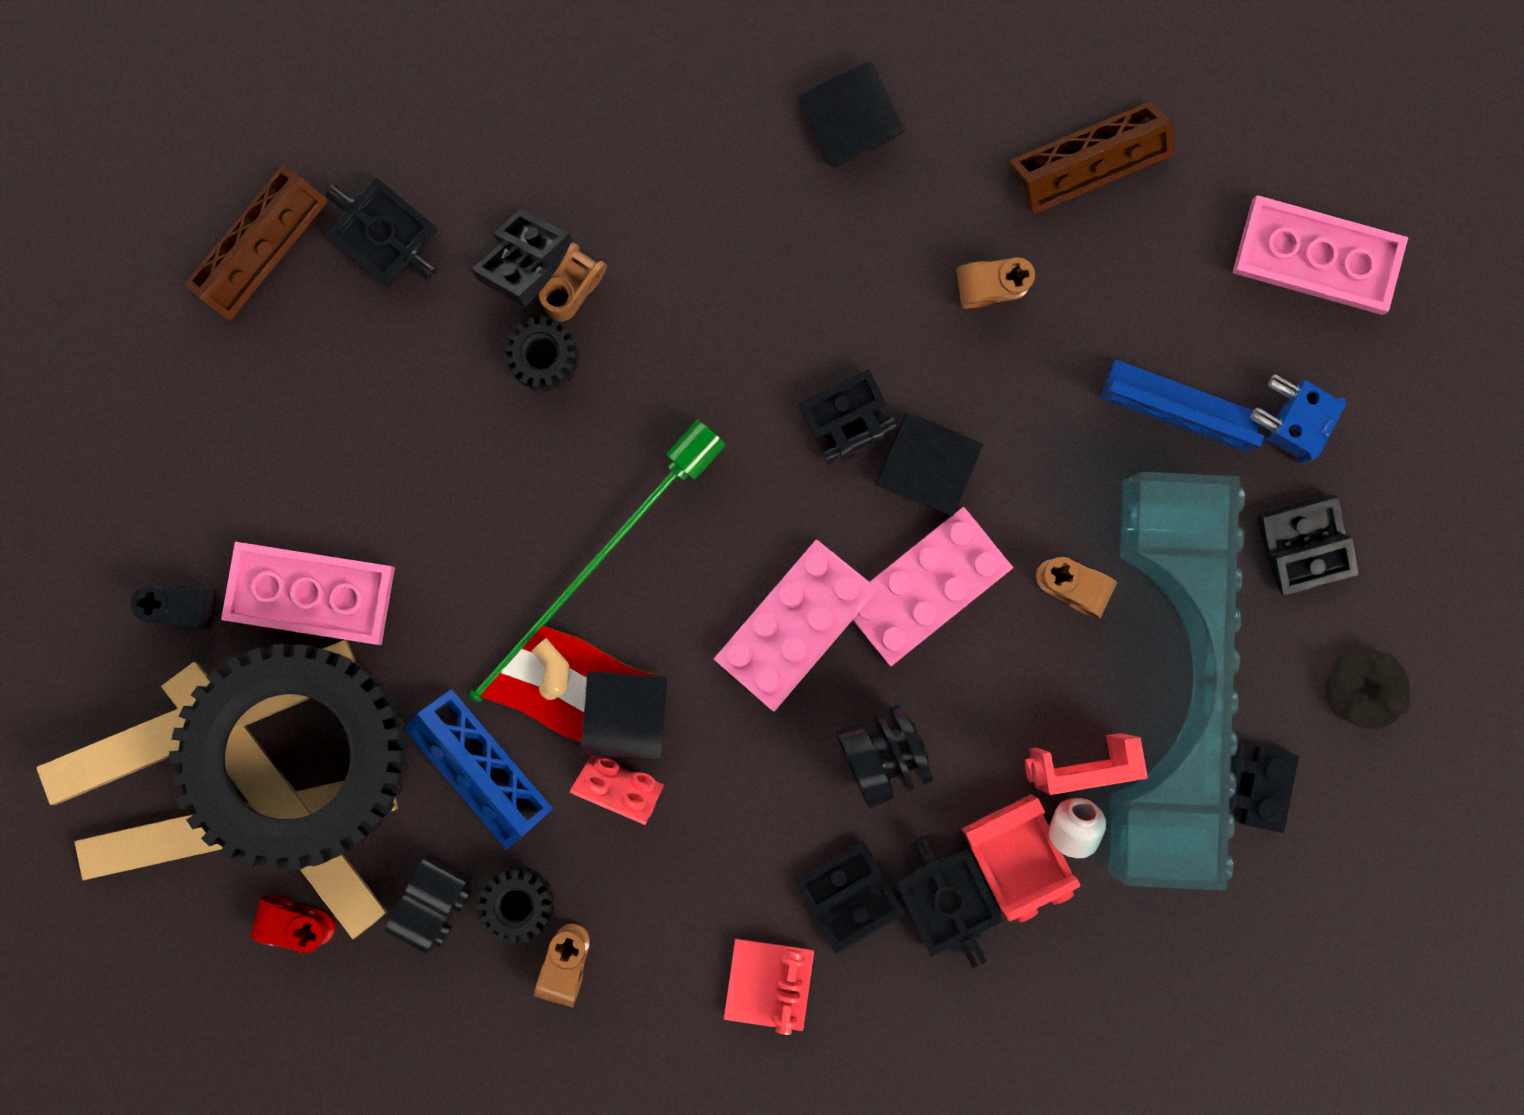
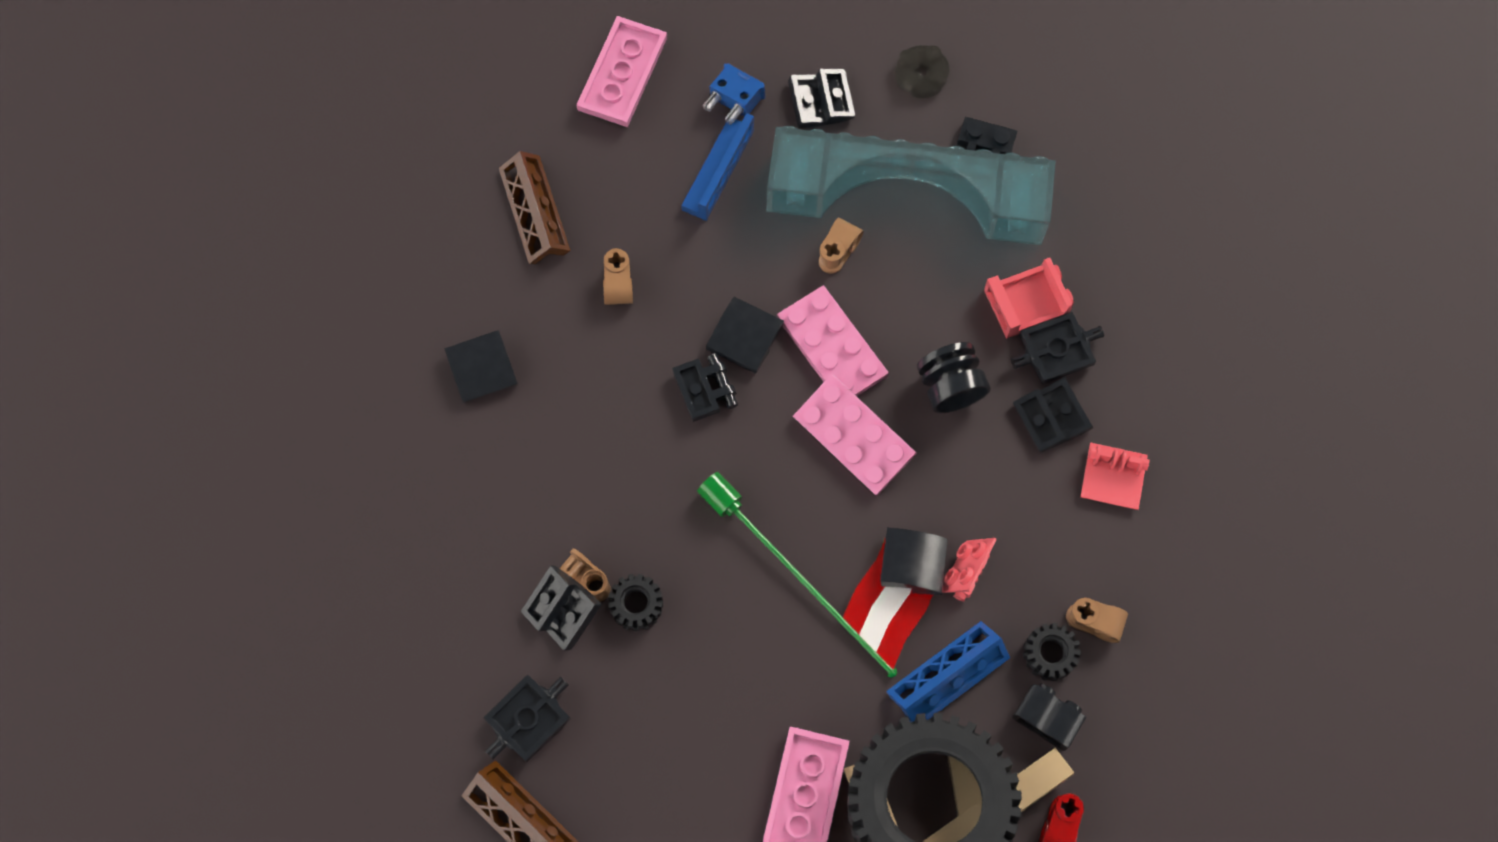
camera: 85 degrees left, 15 degrees down
(556, 670) = (877, 607): tan arm -> none
(1077, 827) = (1009, 257): white head -> none
(1124, 765) = (965, 222): coral panel -> none

